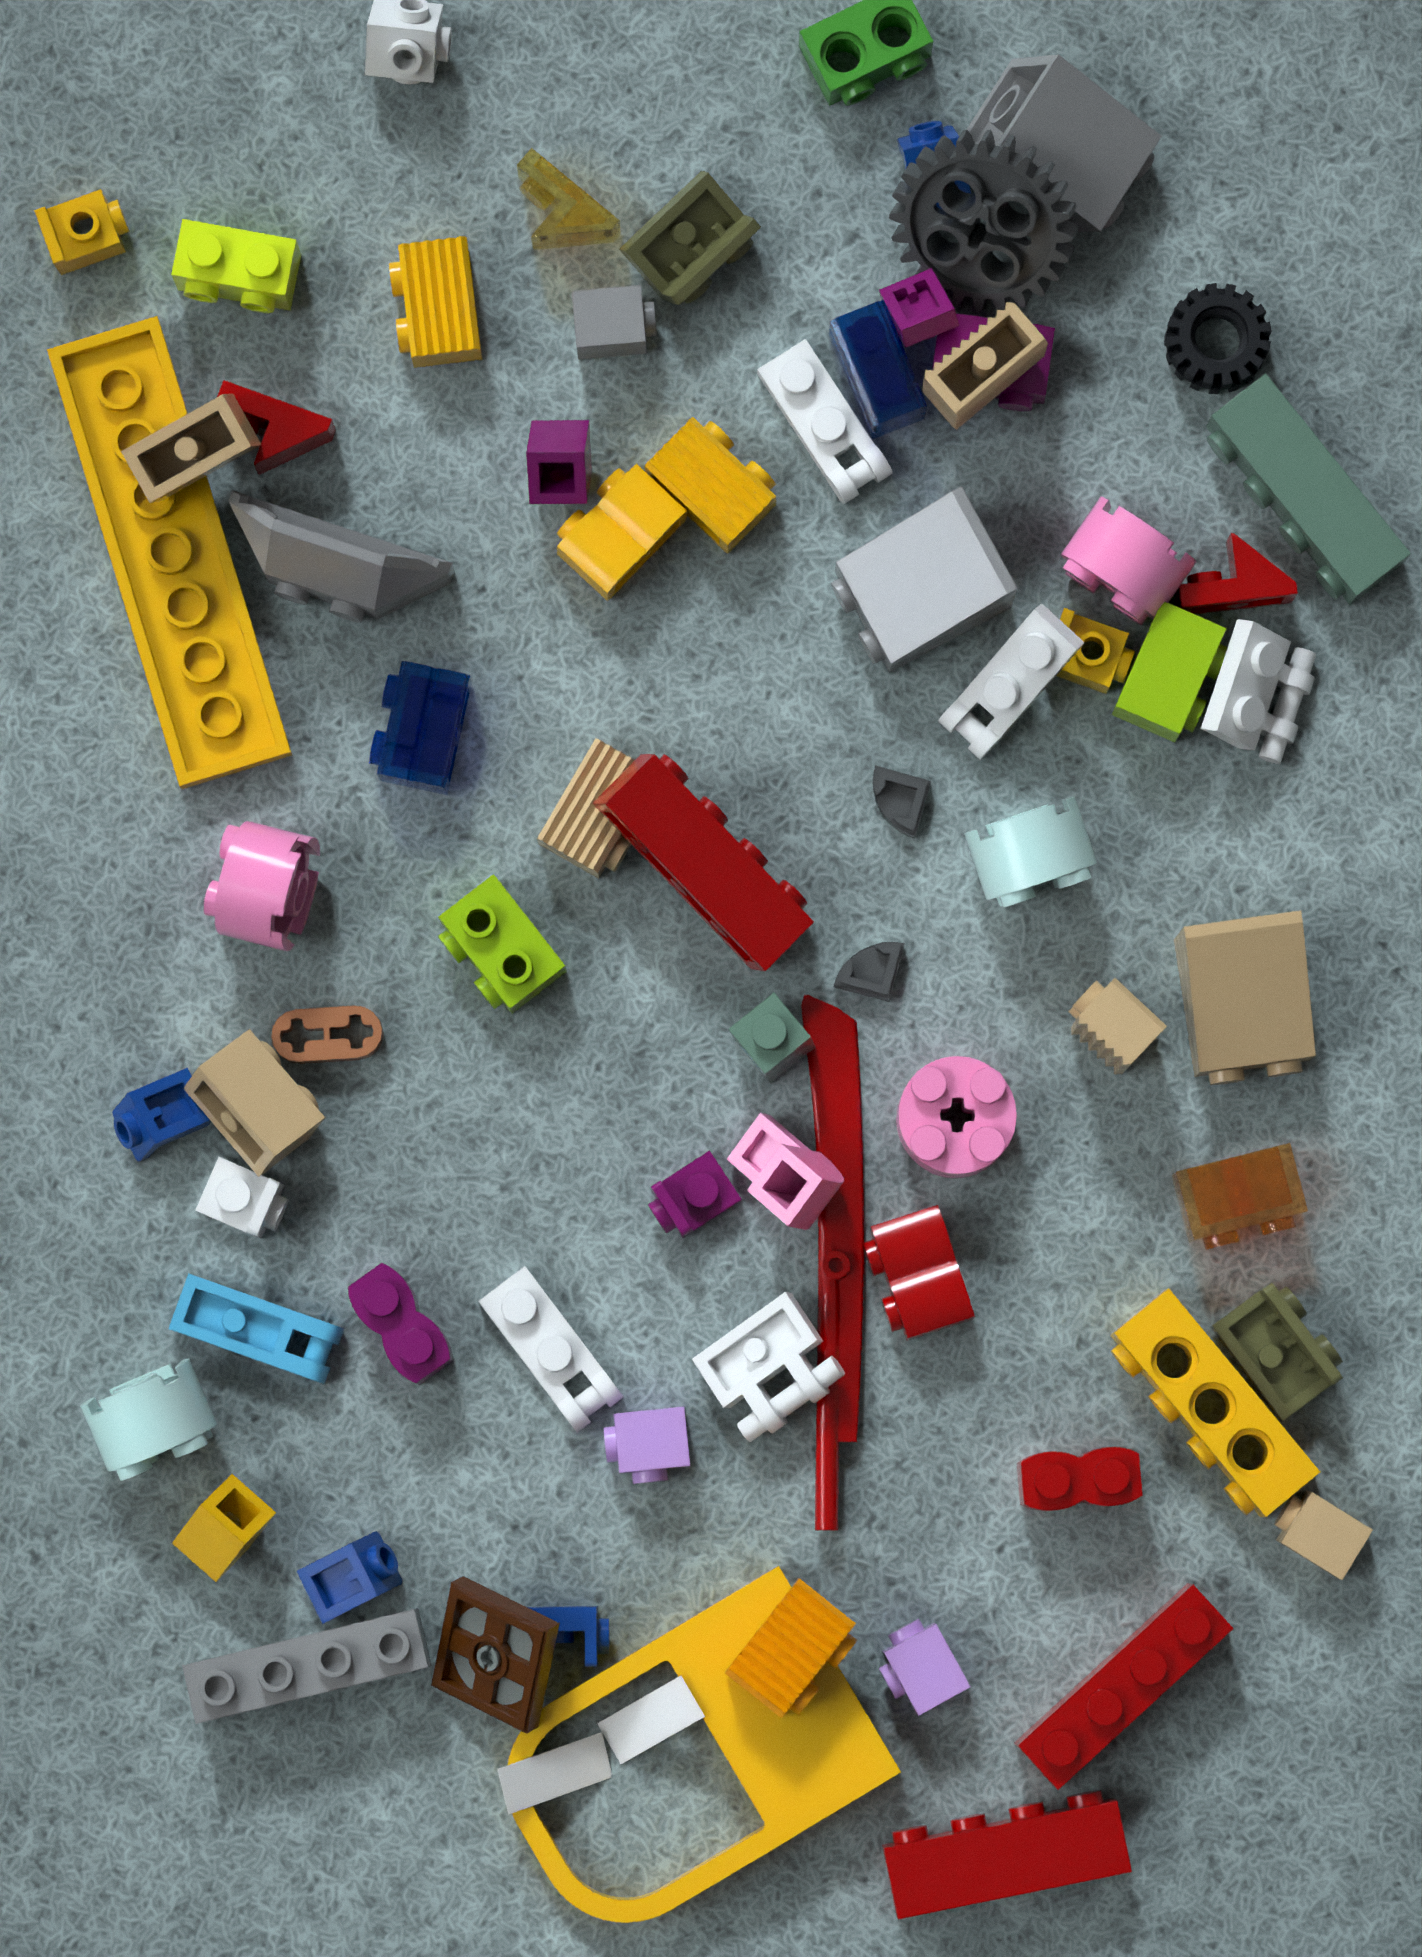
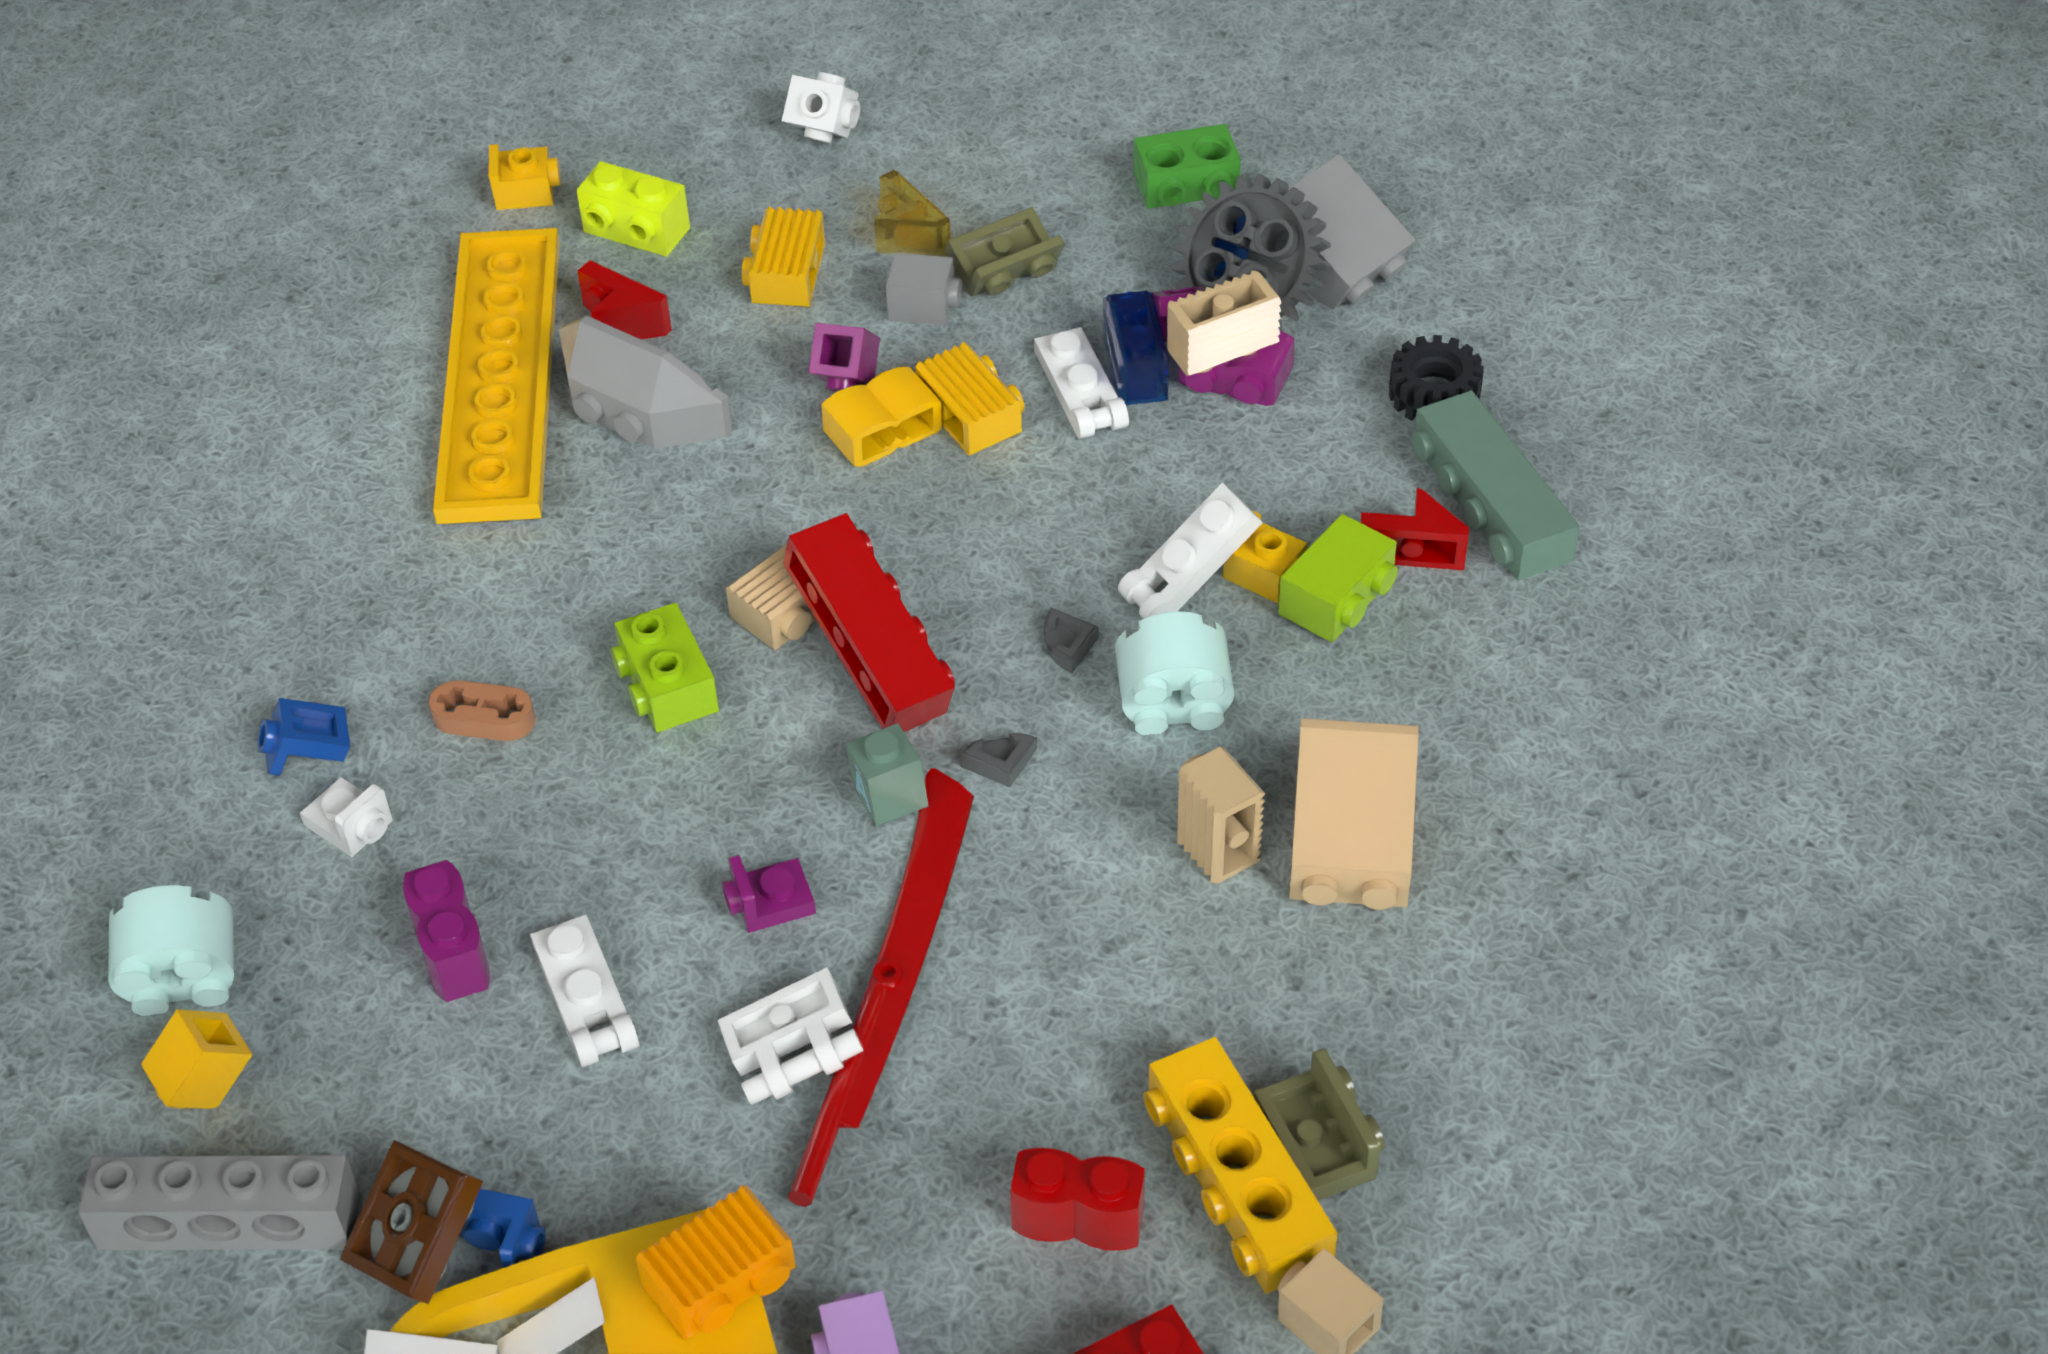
camera: 15 degrees right, 35 degrees down
(191, 448) = (541, 278): tan brick -> none
(253, 1327) = (310, 915): medium azure plate -> none
(254, 1102) = (390, 733): tan brick -> none
(263, 884) = (471, 577): bright pink brick -> none
(350, 1576) = (305, 1128): blue bracket -> none
(422, 727) = (659, 510): clear blue brick -> none
(648, 1443) = (648, 1079): lavender brick -> none
(785, 1172) = (865, 875): bright pink brick -> none
(919, 1272) = (969, 993): red brick -> none
(924, 582) = (1133, 476): slope -> none
(980, 1092) = (1043, 867): bright pink brick -> none
(1126, 560) = (1315, 486): bright pink brick -> none
(1239, 1195) = (1310, 987): clear orange brick -> none
(1247, 686) = (1405, 597): white plate -> none

